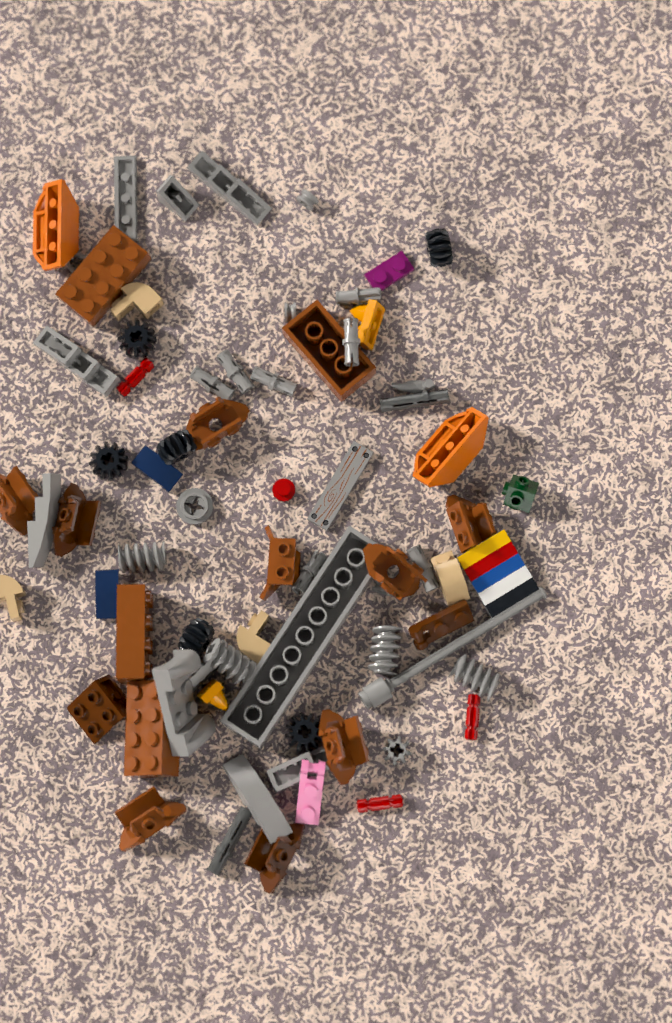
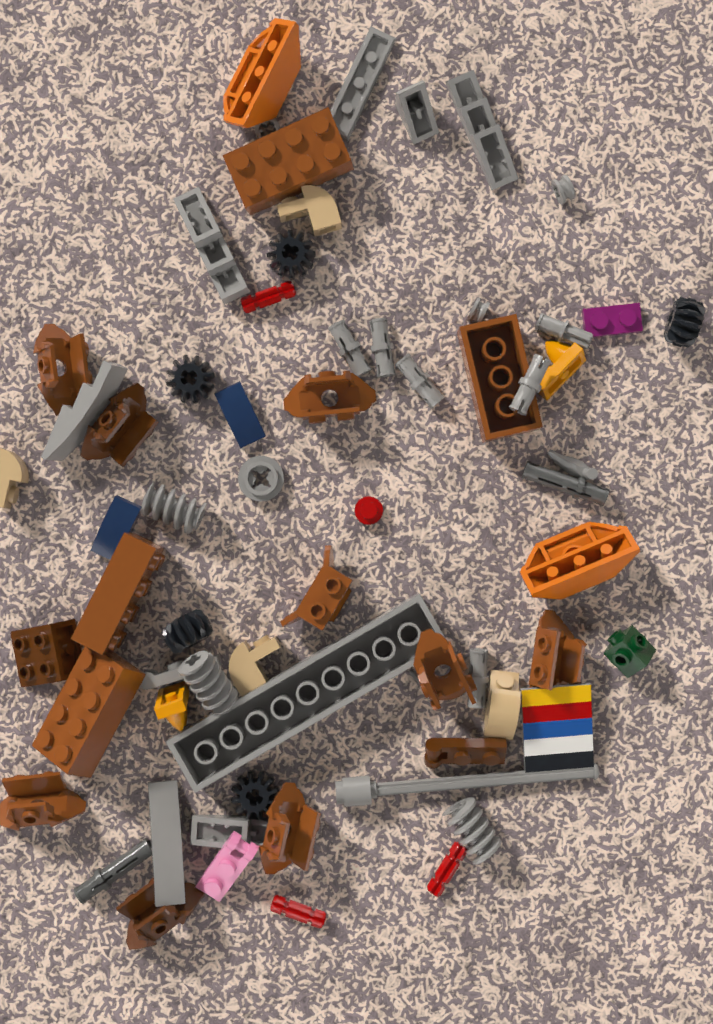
camera: 20 degrees right, 10 degrees up
(176, 447) = (272, 403): black gear -> none
(183, 724) = (123, 720): light grey piece -> none
(309, 572) = (349, 620): light grey pin -> none
(340, 486) = (433, 537): light grey tile -> none
(384, 650) = (388, 749): light grey piece -> none
(392, 746) = (347, 874): light grey gear -> none

